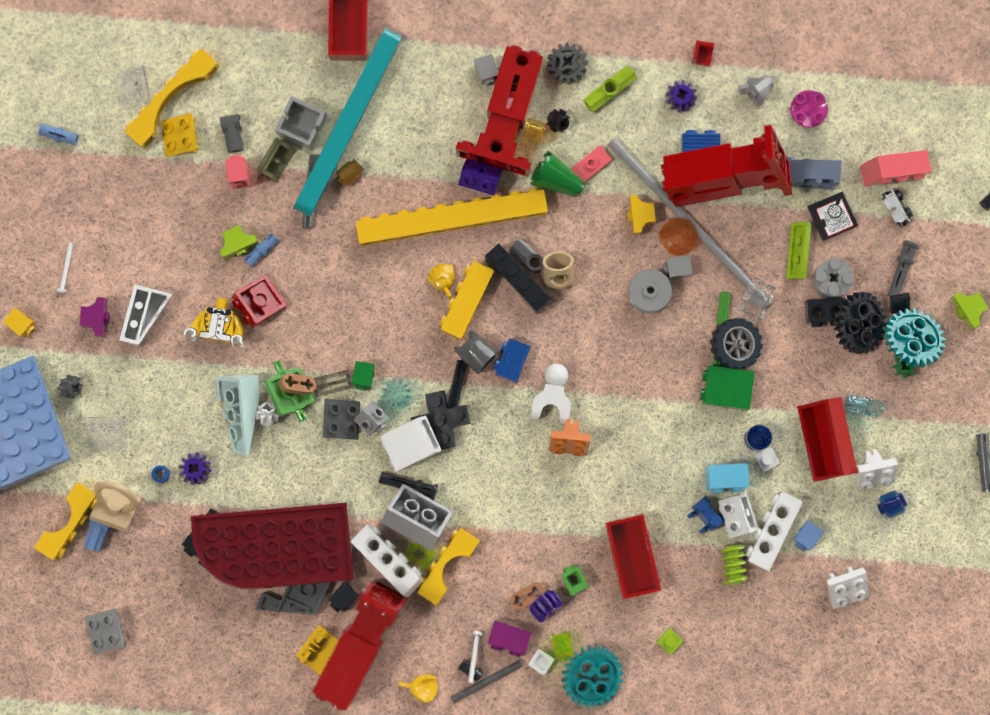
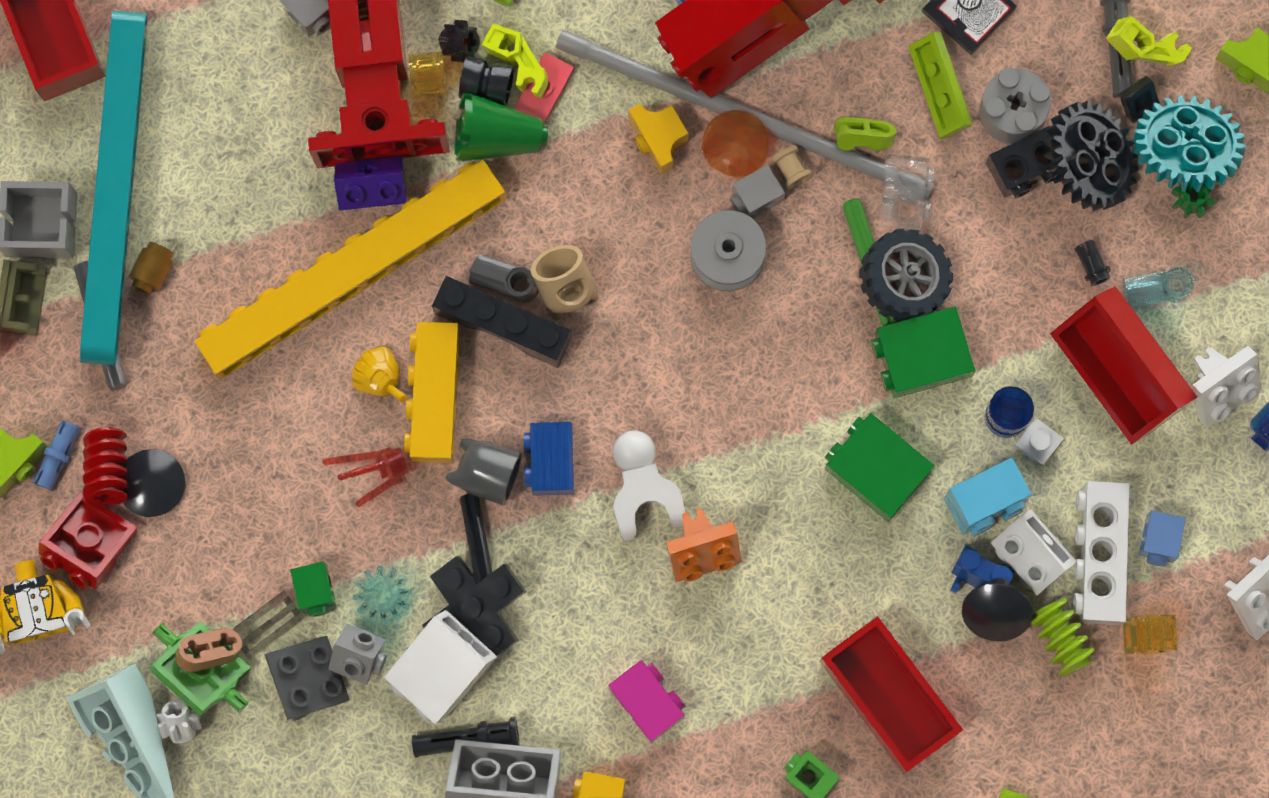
camera: 20 degrees left, 5 degrees down
(281, 267) = (105, 466): none -> red piece
(303, 285) = (153, 483): none -> black dish
(428, 326) = (388, 462): none -> clear red plant
(508, 505) = (647, 700): none -> dark pink piece
(563, 148) = (486, 81): none -> black wheel
(588, 151) = (529, 69): none -> neon yellow piece
(678, 436) = (877, 466): none -> green brick
(702, 261) = (791, 167): none -> tan bush
(705, 537) = (997, 611): none -> black dish
(747, 259) = (863, 133): none -> lime plate
(779, 583) = (1150, 634): none -> clear yellow brick
(836, 379) = (1093, 265): none -> black pin
(924, 283) = (1148, 50): none -> neon yellow piece

